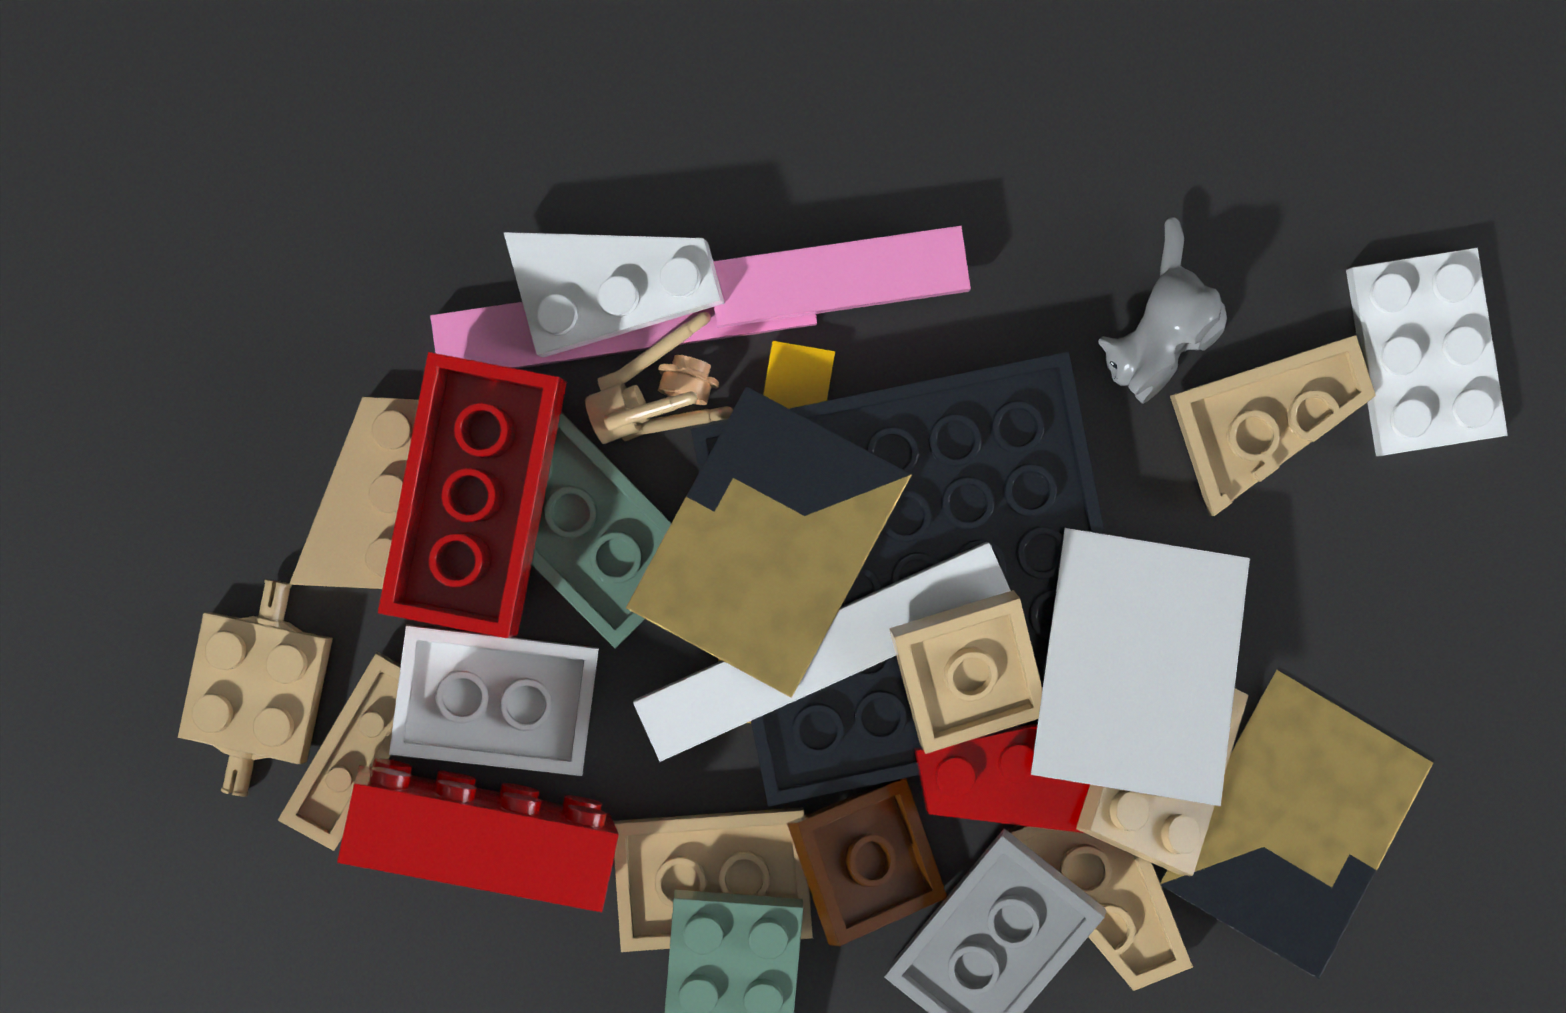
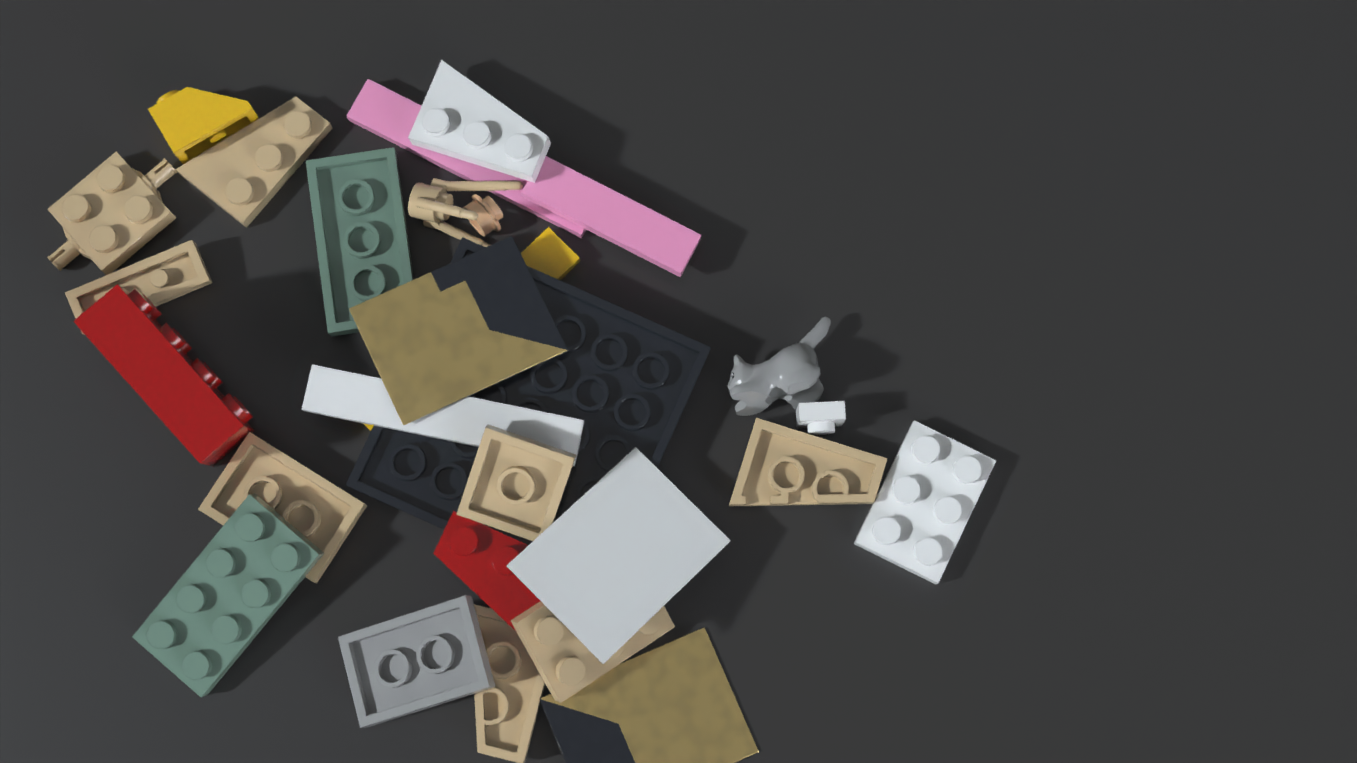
camera: 30 degrees right, 10 degrees down
(273, 509) = (199, 120): none -> yellow slope
(472, 495) = (311, 183): red brick -> none
(493, 700) = (237, 313): white plate -> none
(867, 861) = (378, 558): reddish brown plate -> none
(1246, 341) = (820, 416): none -> white plate

